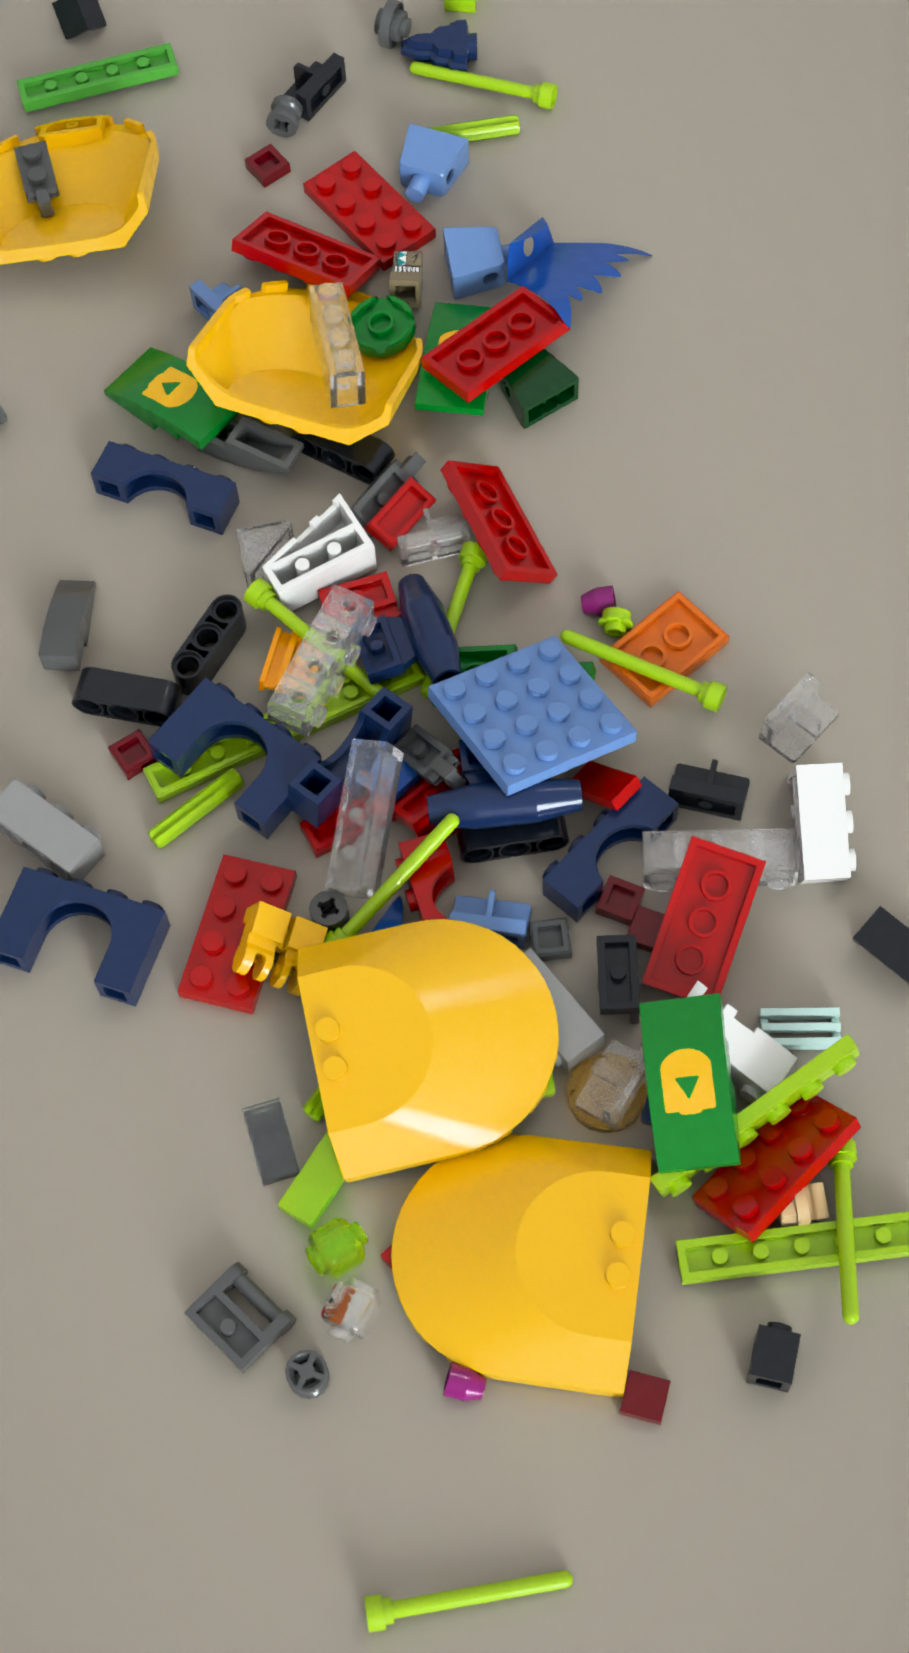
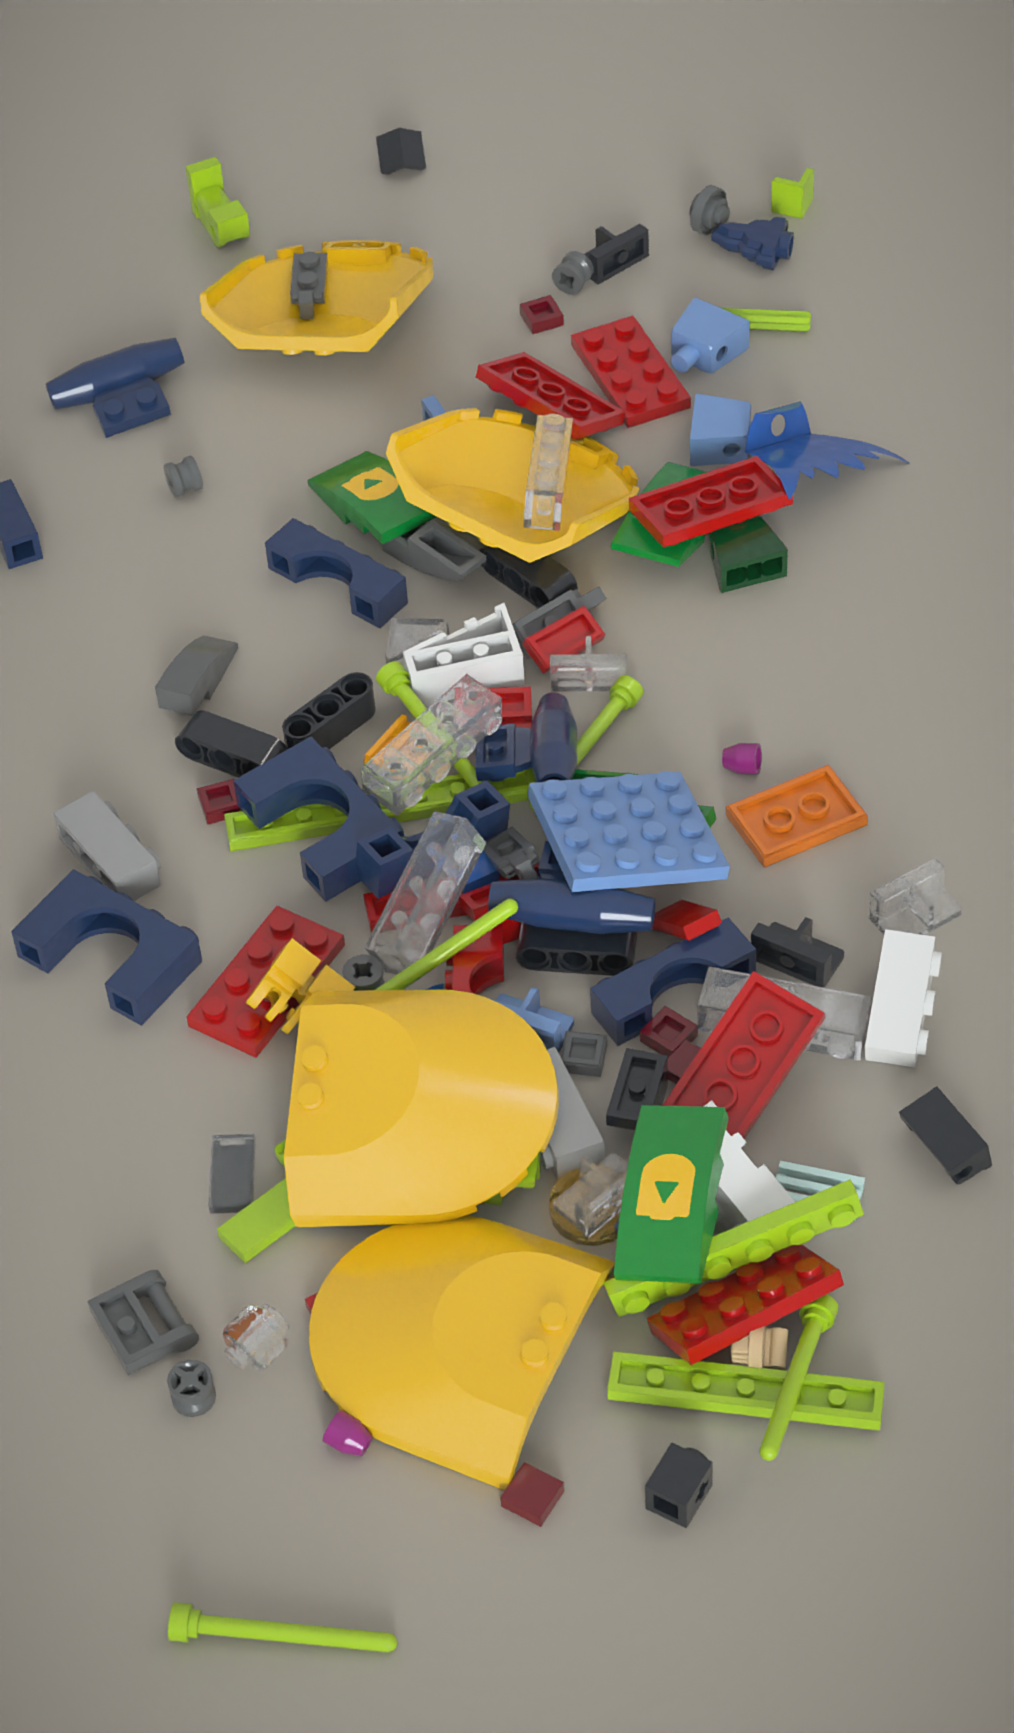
camera: 15 degrees right, 15 degrees down
(97, 77) = (399, 209): bright green plate -> none
(195, 808) = (260, 861): lime axle -> none
(336, 1247) = (261, 1277): clear neon green head -> none
(383, 326) = (602, 469): green tile -> none
(407, 275) = (645, 431): dark tan leg -> none
(498, 522) = (660, 664): red plate -> none
(542, 94) = (844, 299): lime piece -> none
(616, 621) = (752, 778): lime plate -> none
(709, 693) = (828, 862): lime piece -> none

